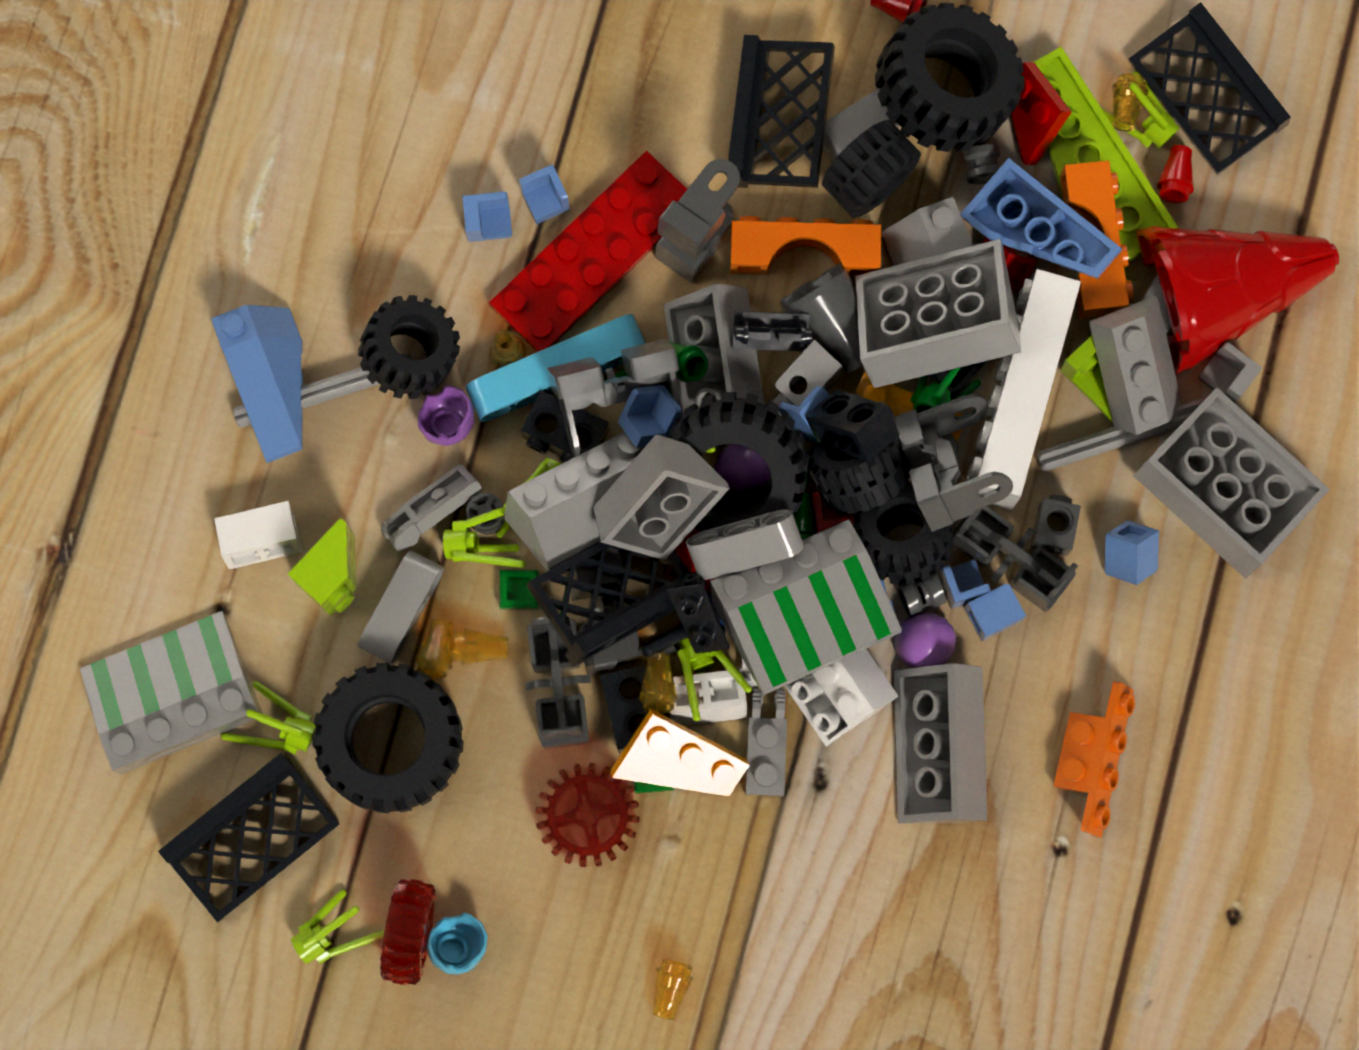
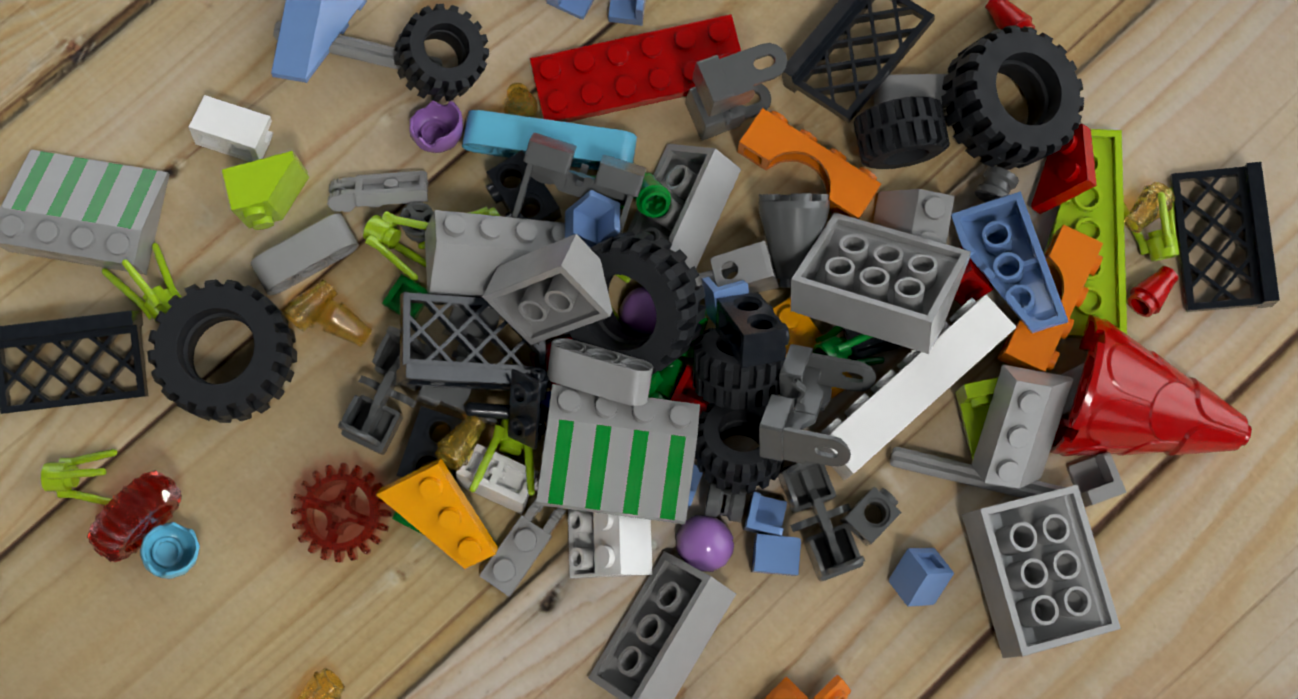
camera: 30 degrees right, 0 degrees up
(771, 331) = (735, 213): black hinge -> none

